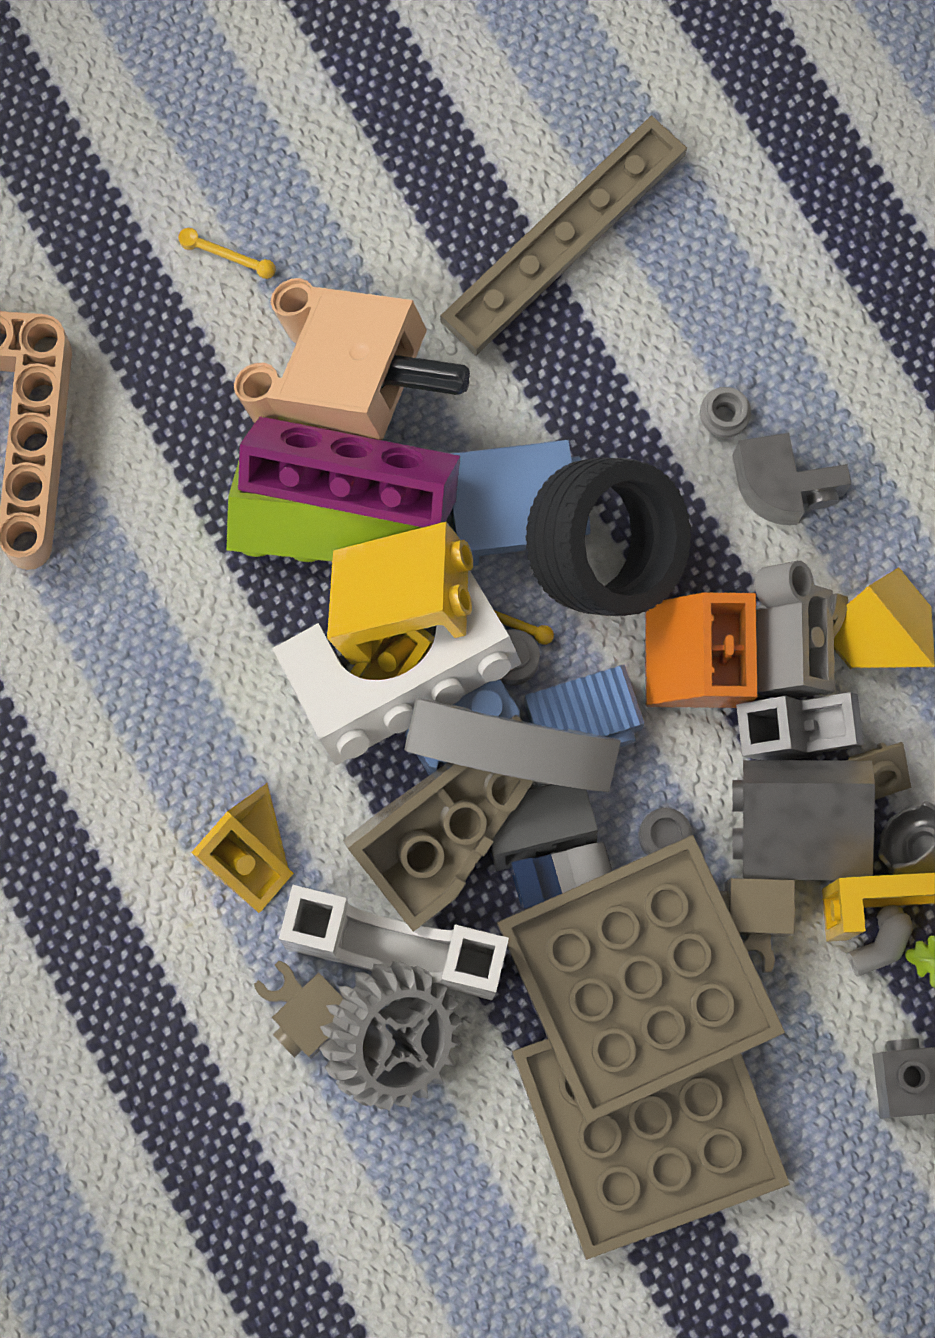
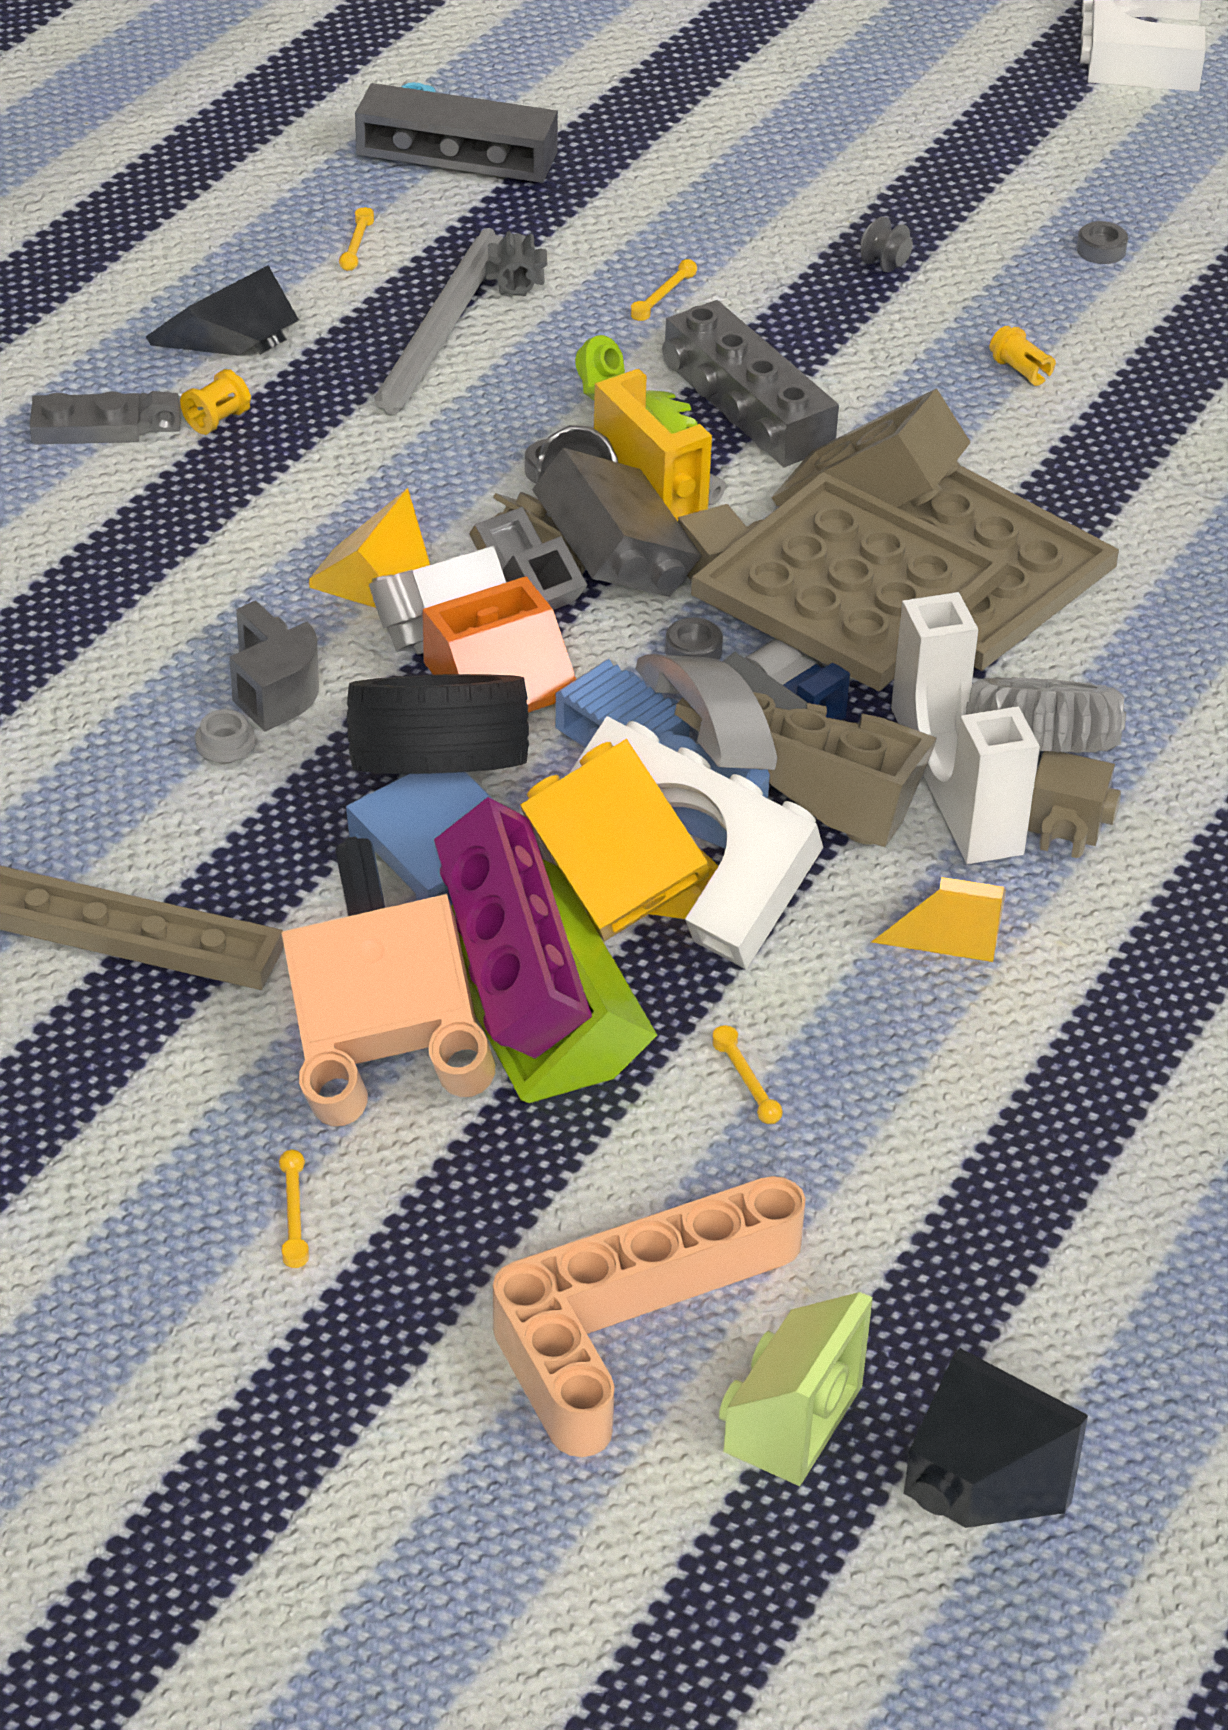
camera: 115 degrees left, 35 degrees down
(223, 617) = (726, 1040): none -> yellow hinge
(789, 1099) = (892, 456): none -> dark tan slope

